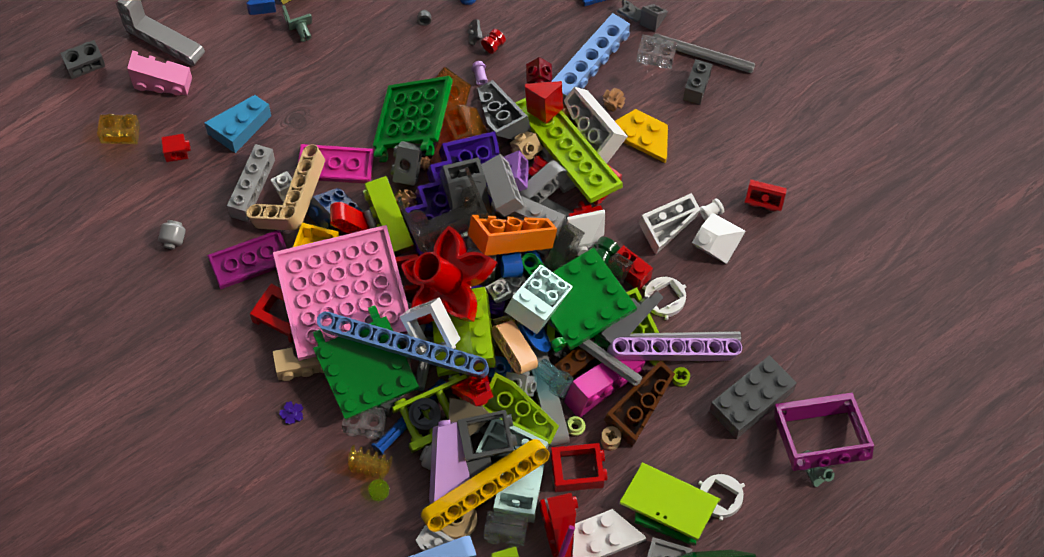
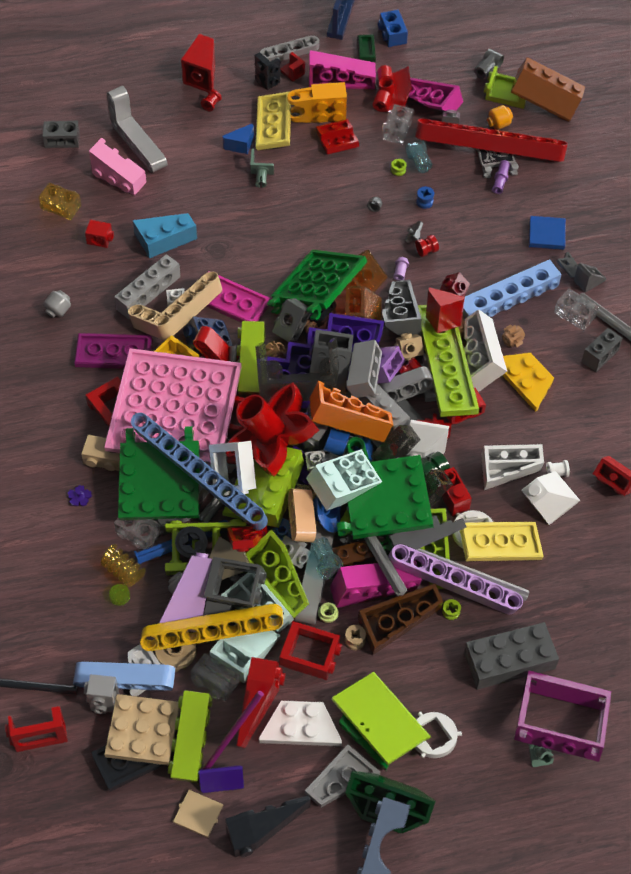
camera: 25 degrees right, 5 degrees down
(695, 297) = (501, 541): none -> light yellow tile

